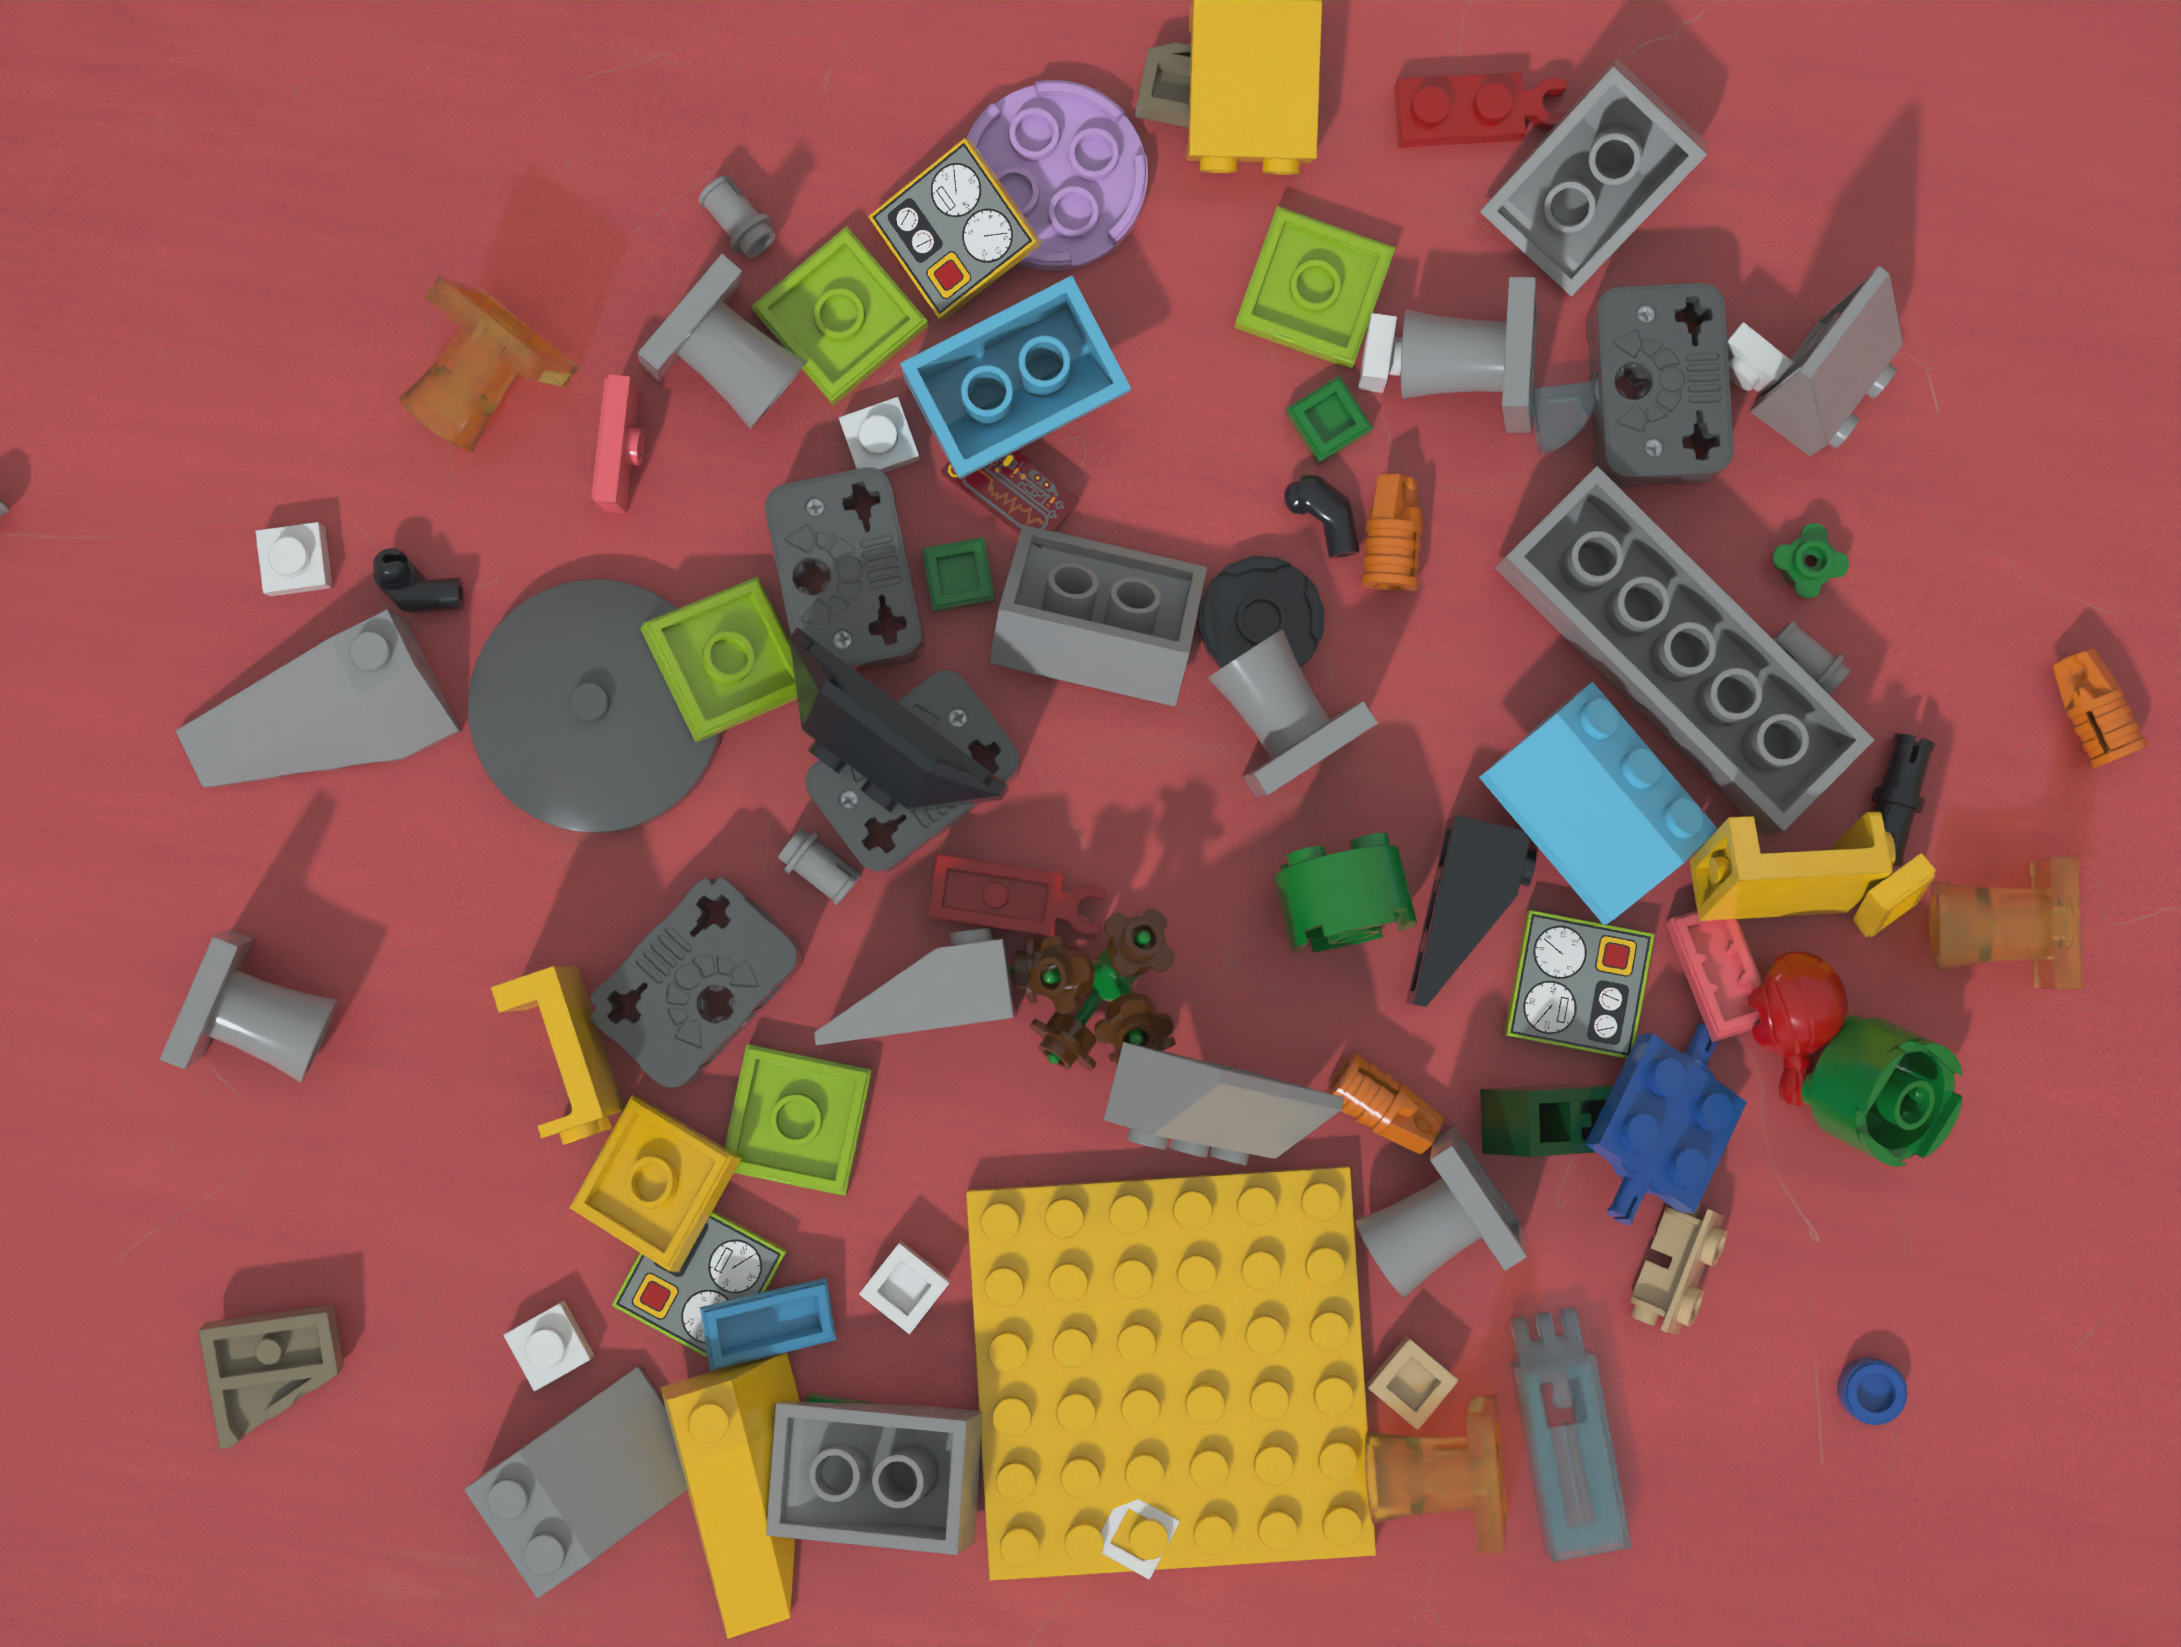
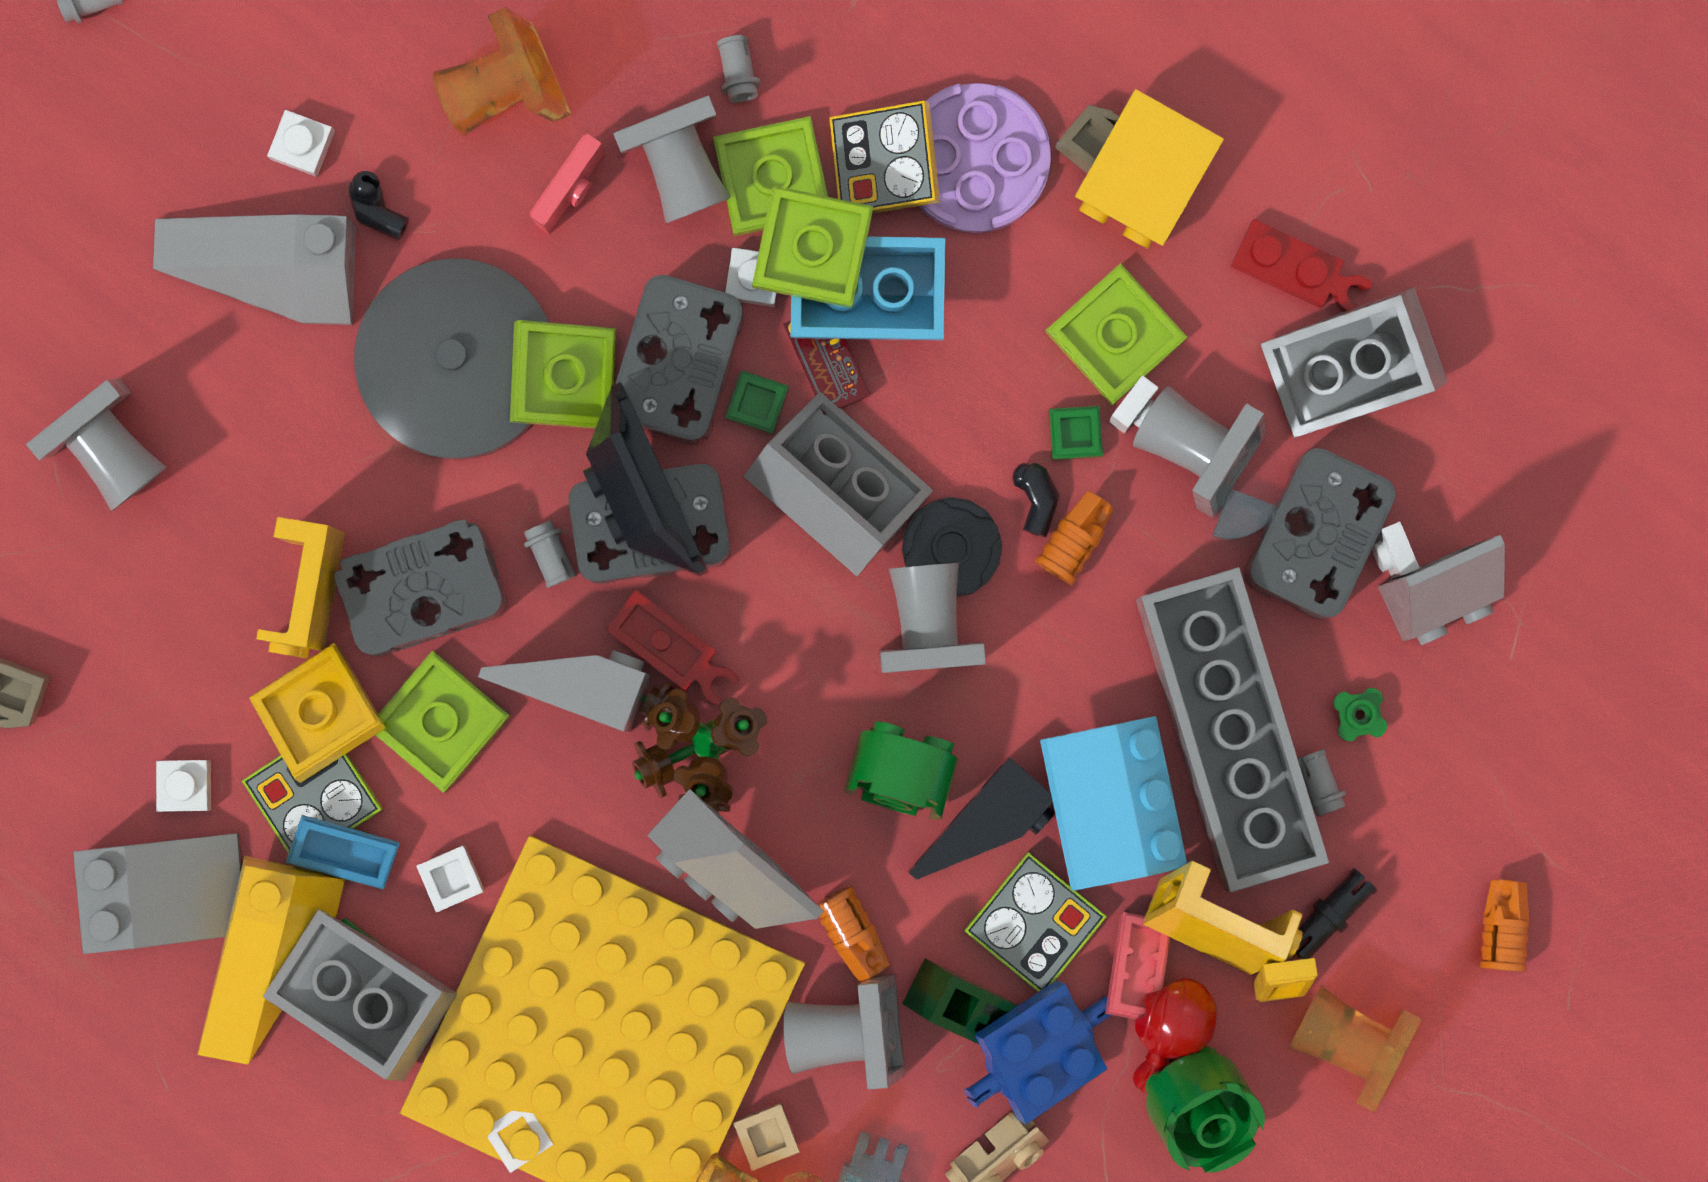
camera: 30 degrees right, 0 degrees up
(930, 363) = (812, 247): none -> lime tile

